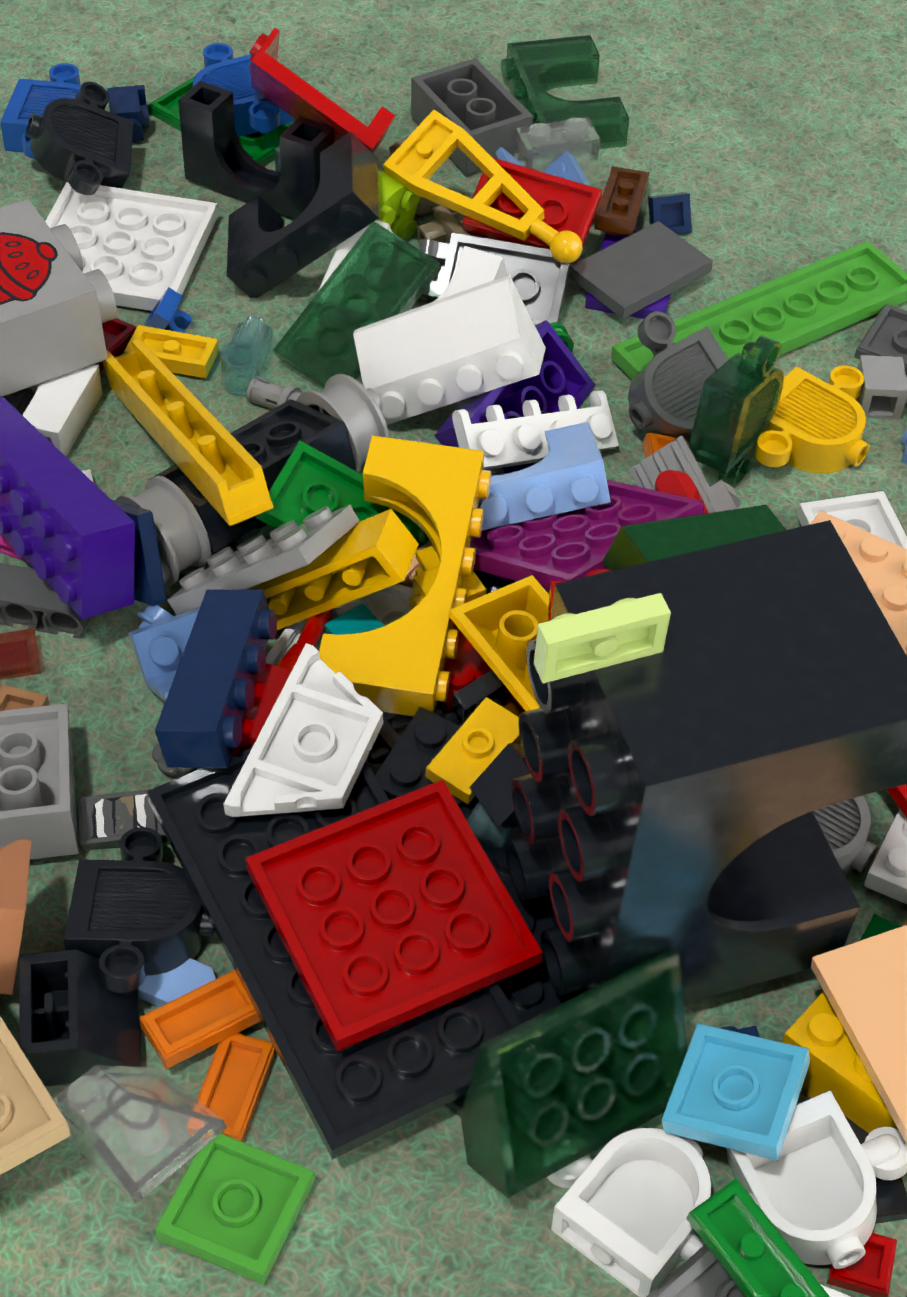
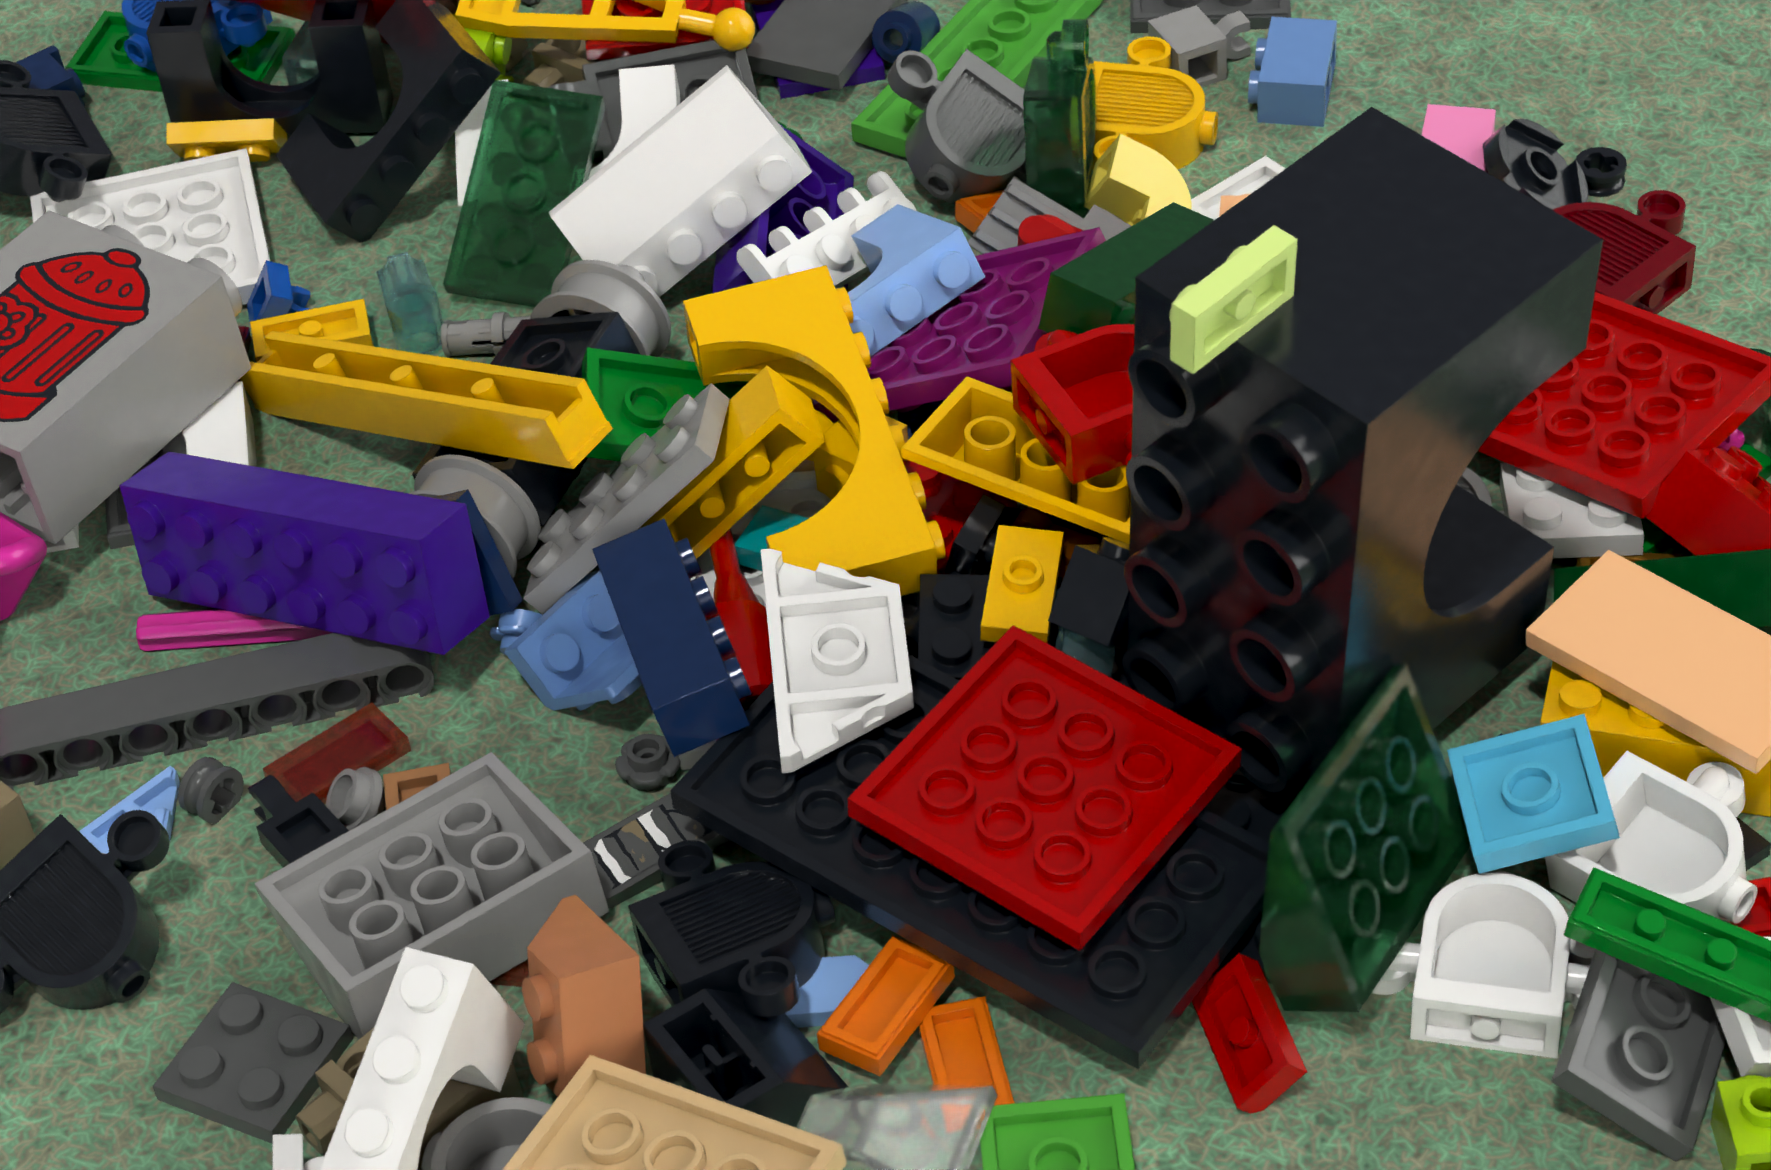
camera: 20 degrees left, 5 degrees down
(202, 188) = (211, 138): none -> yellow plate
(430, 1171) = (1248, 1035): none -> red plate
(692, 293) = (904, 29): none -> dark blue brick
(771, 478) = (1135, 182): none -> light yellow brick

